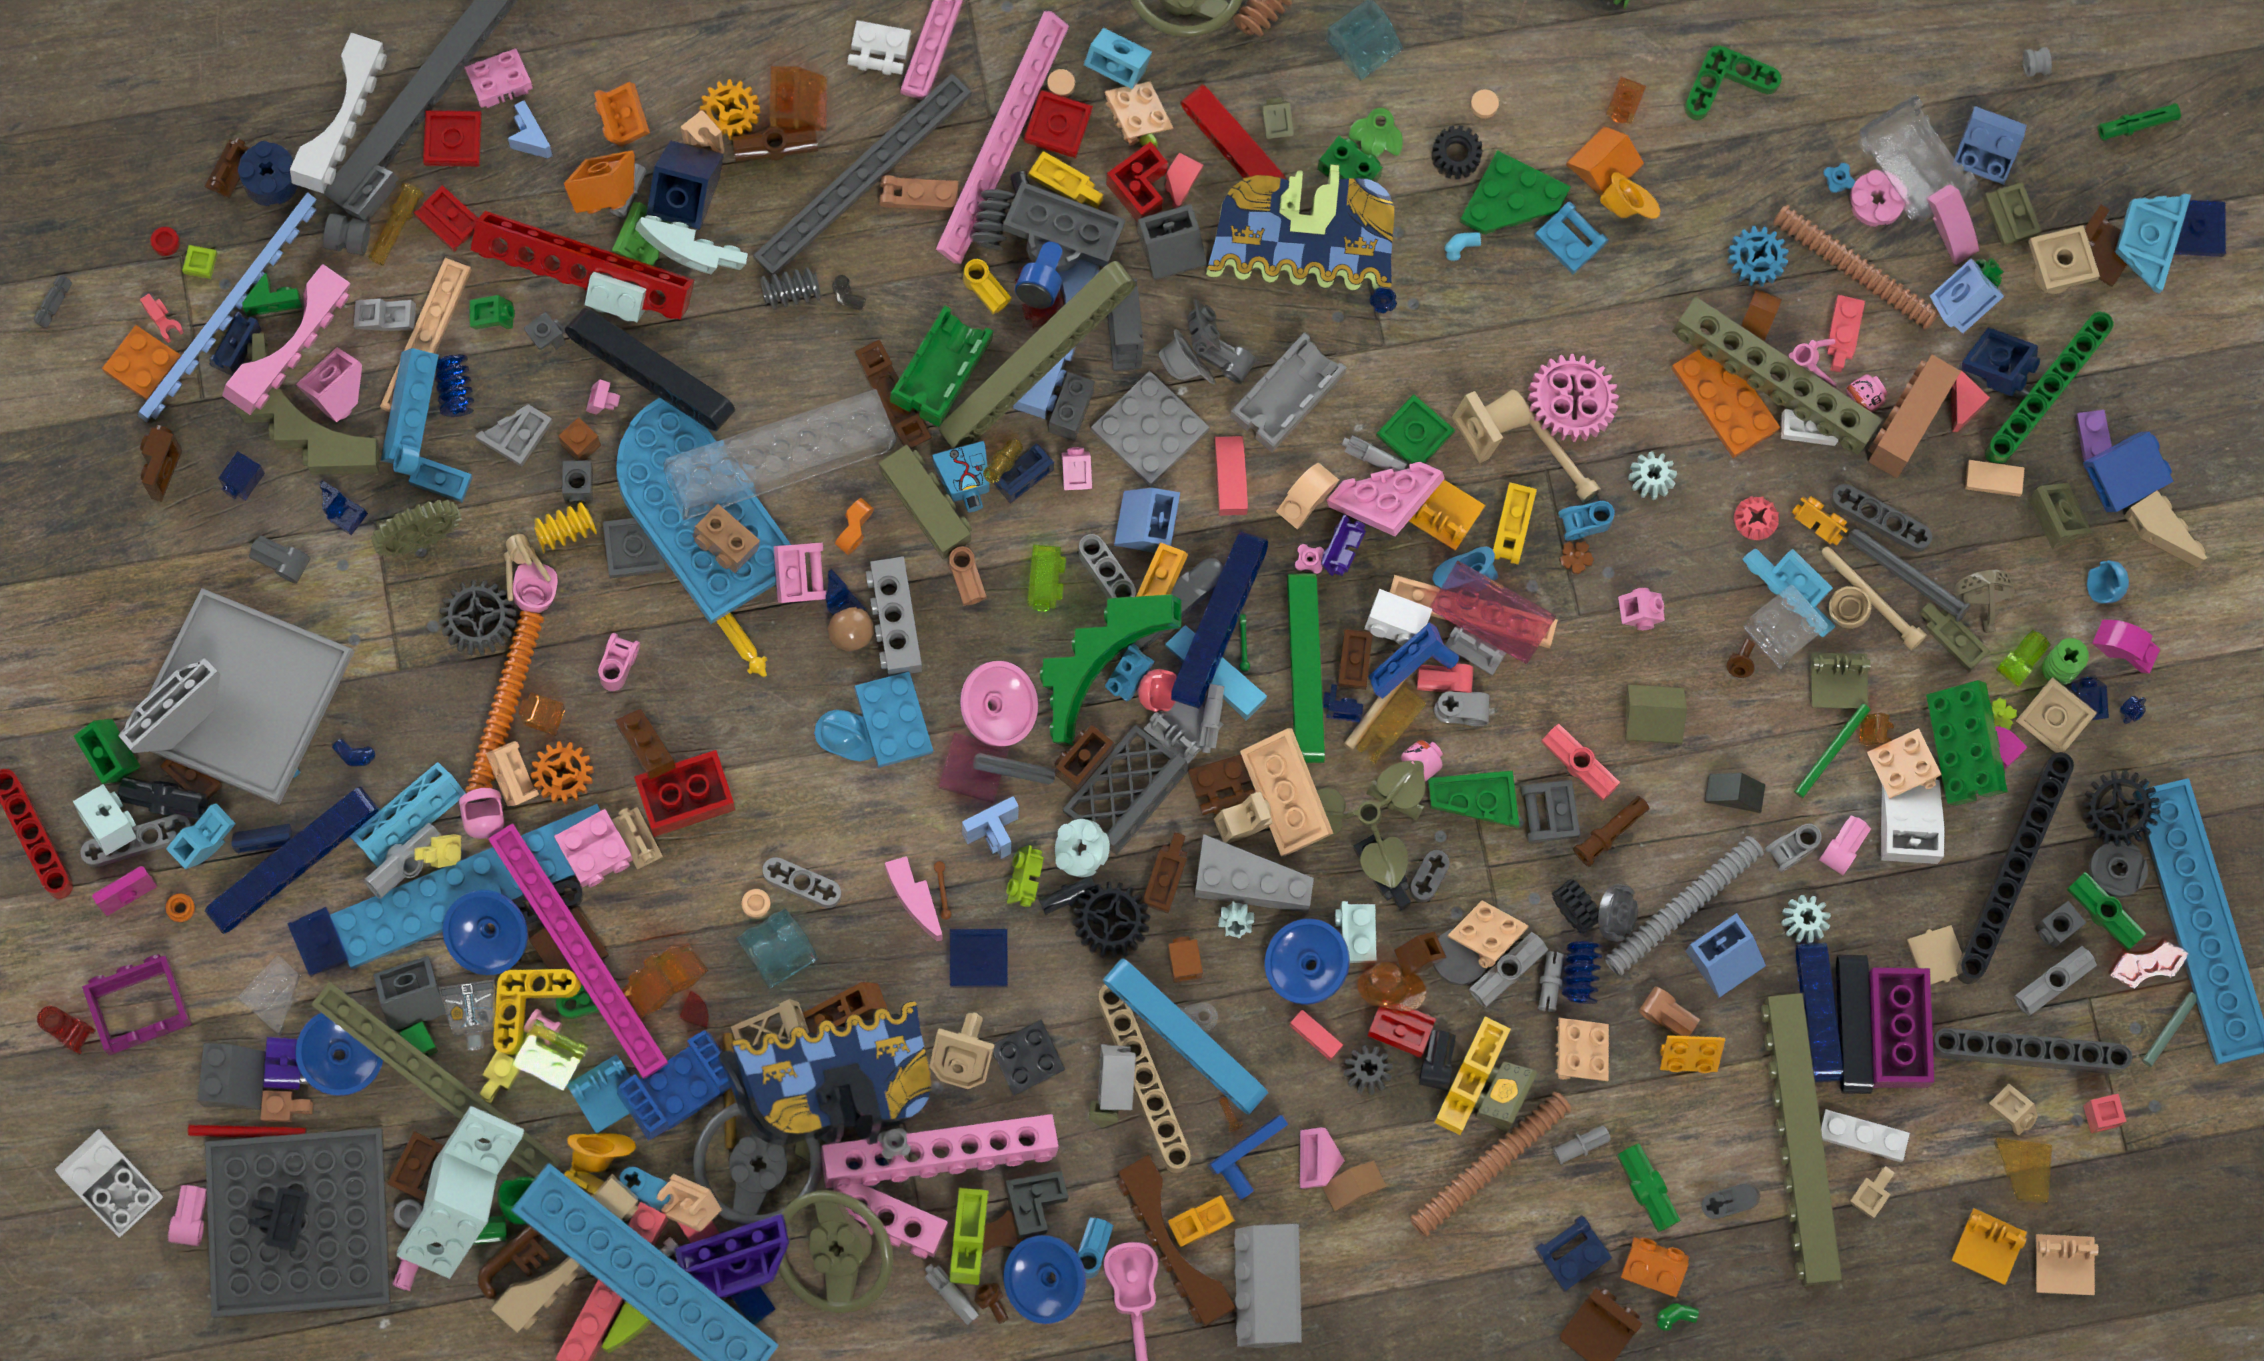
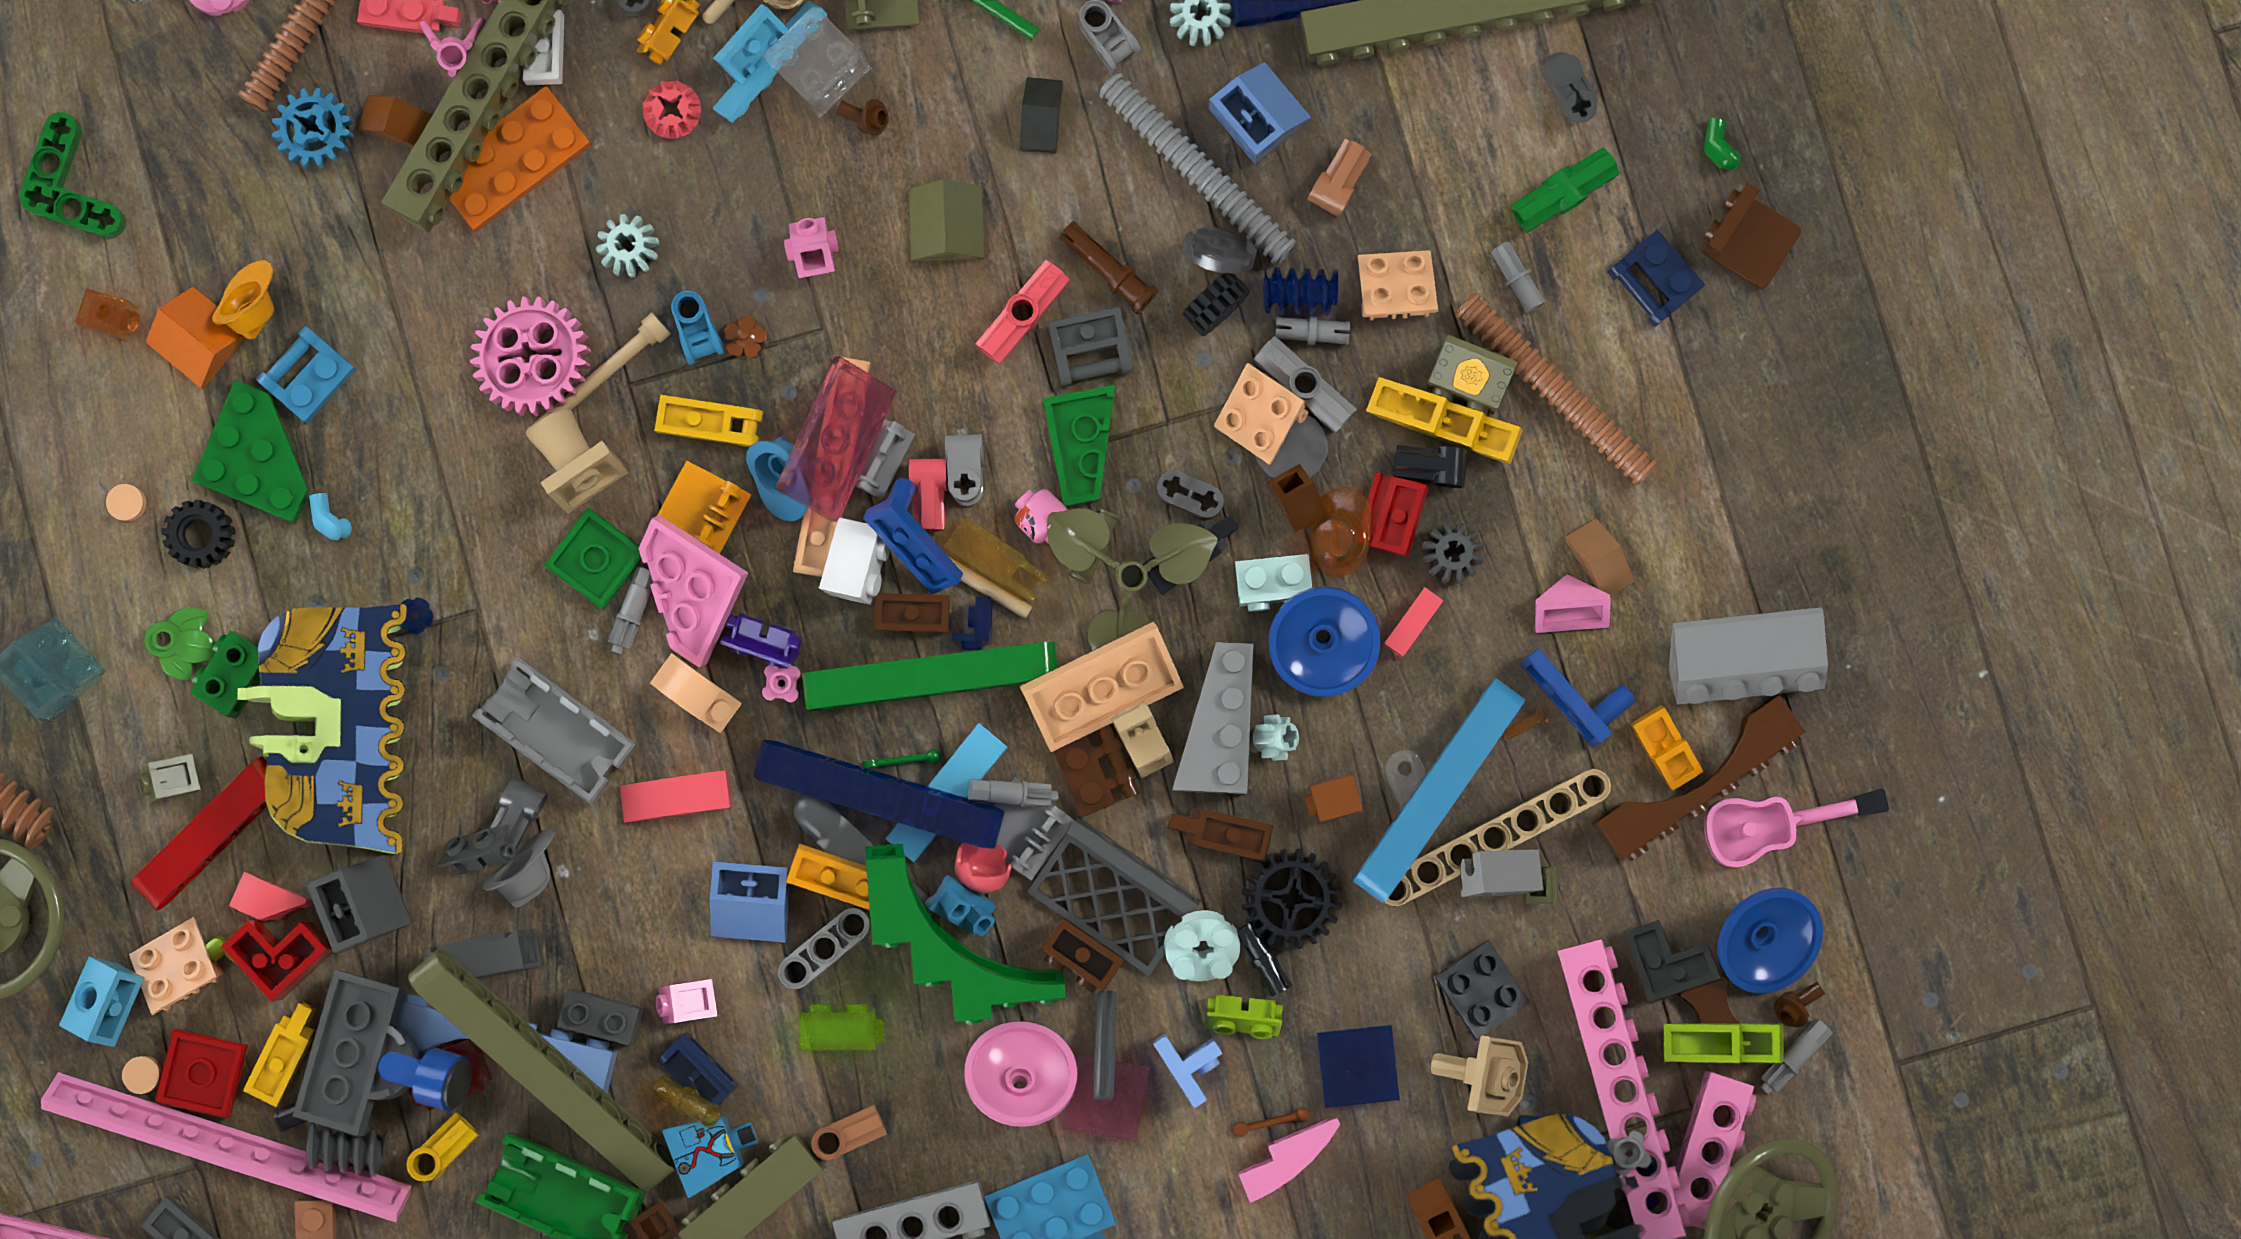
camera: 85 degrees left, 10 degrees up
(1095, 1243) = (1714, 881): dark azure piece -> none
(1150, 428) = (620, 909): light grey plate -> none
(1655, 1266) = (1661, 174): orange bracket -> none
(1691, 1053) = (1392, 132): light orange hinge -> none
(1839, 185) = (203, 34): dark azure plate -> none

